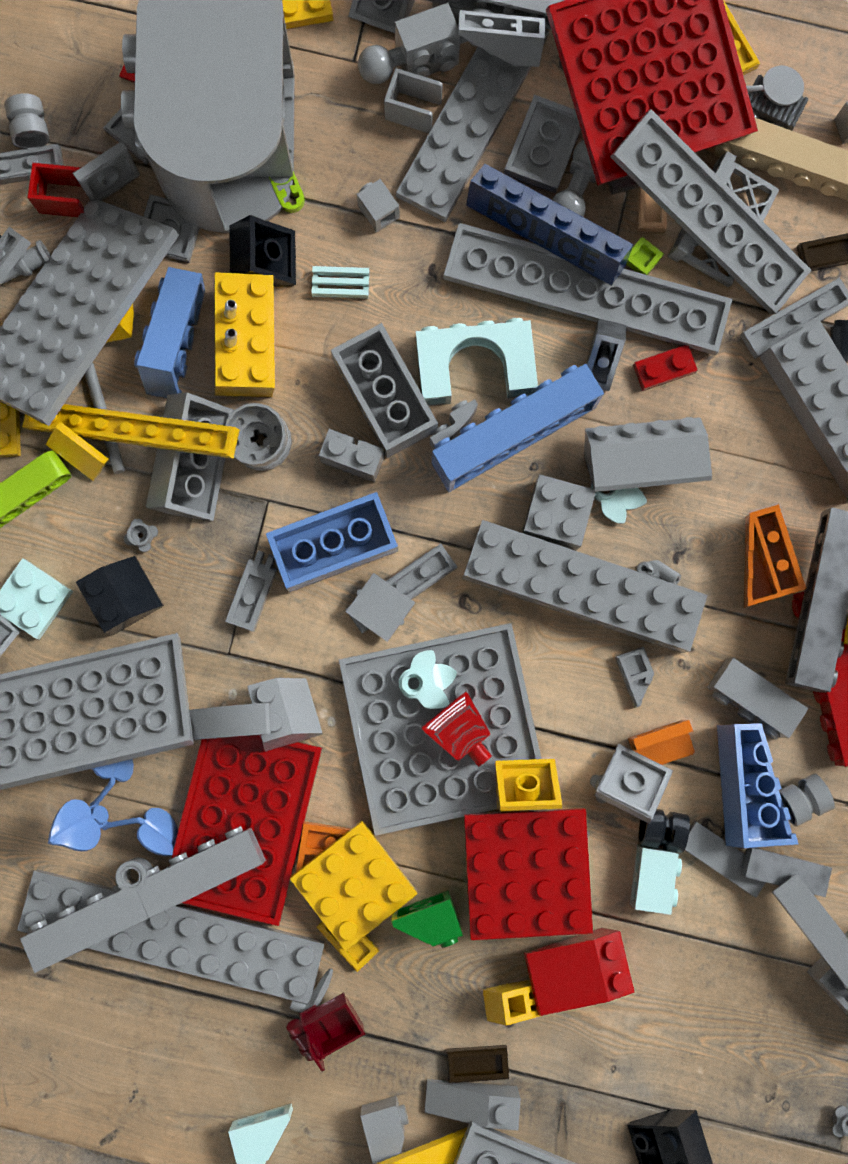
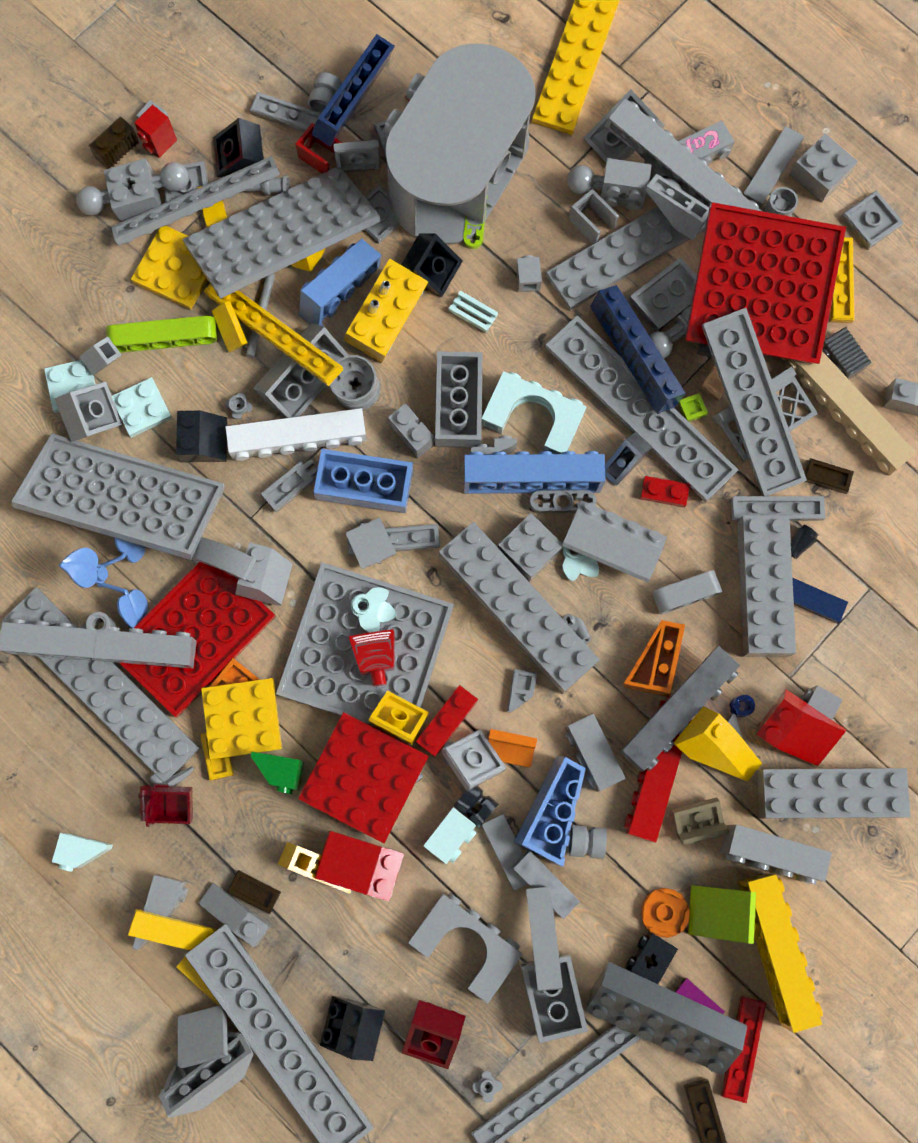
camera: 30 degrees right, 5 degrees down
(57, 99) = (352, 90): none -> dark blue brick
(224, 531) = (295, 434): none -> white brick
(539, 444) = (556, 509): none -> light grey beam
(579, 757) = (447, 721): none -> red brick
(704, 966) = (500, 953): none -> light grey arch
(753, 466) = (687, 592): none -> light grey beam
(761, 1101) = (433, 1034): none -> dark red slope
(781, 85) = (855, 342): light grey piece -> none

